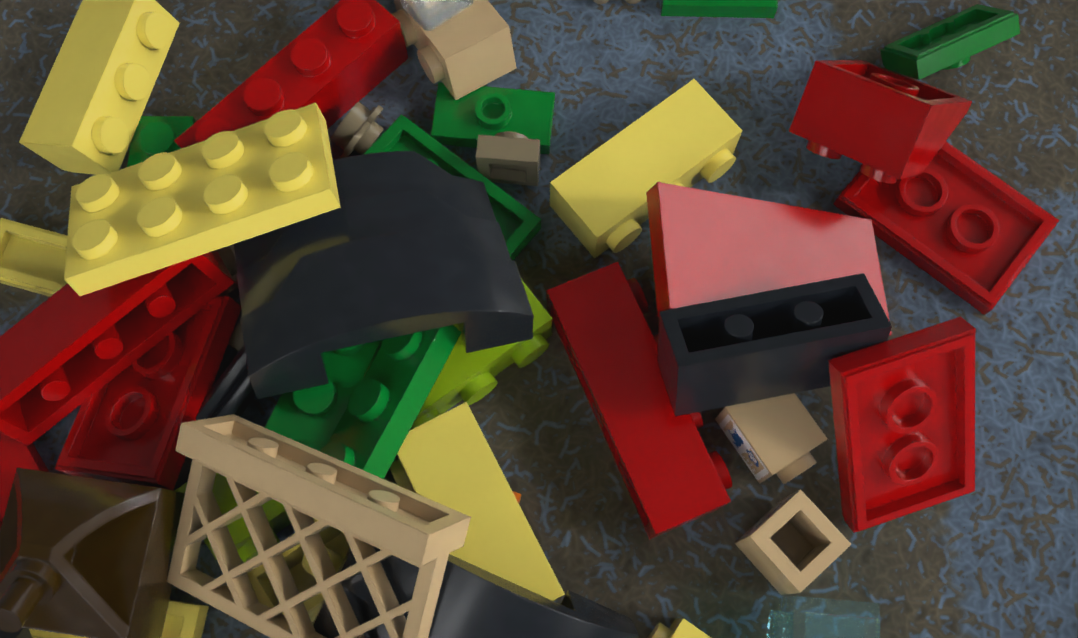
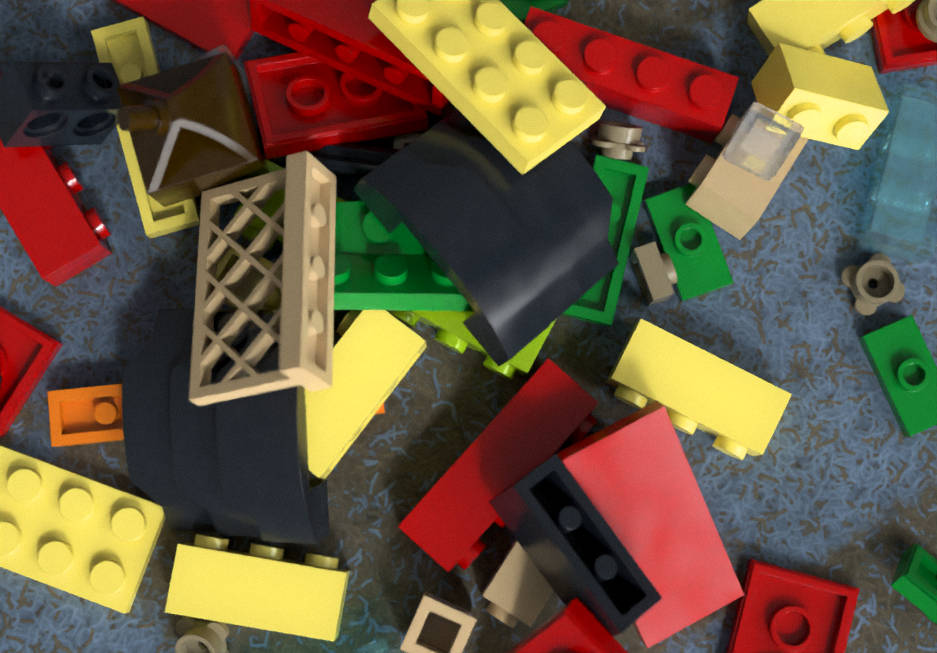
camera: 60 degrees right, 10 degrees up
(875, 118) = (836, 562): red slope -> none

